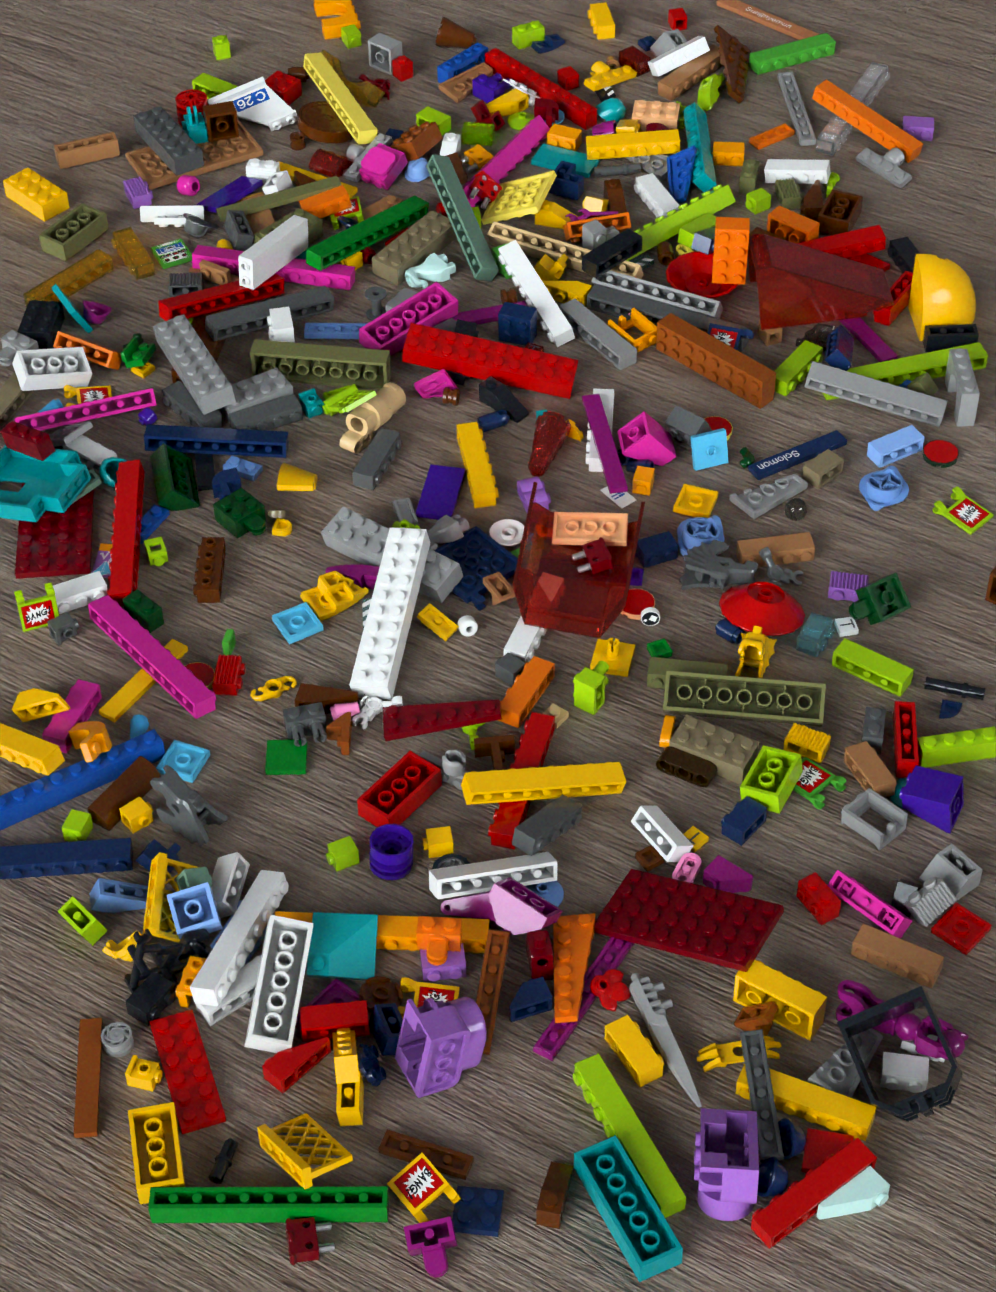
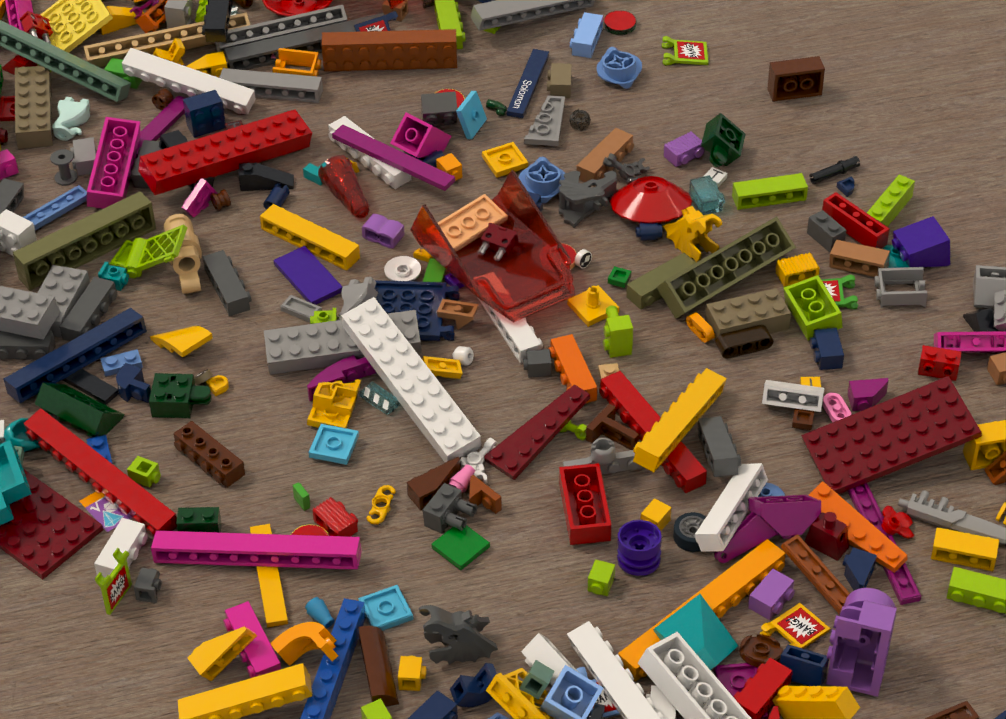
camera: 45 degrees left, 0 degrees up
(438, 937) = (761, 574): orange brick -> none
(621, 499) = (433, 192): white sticker -> none

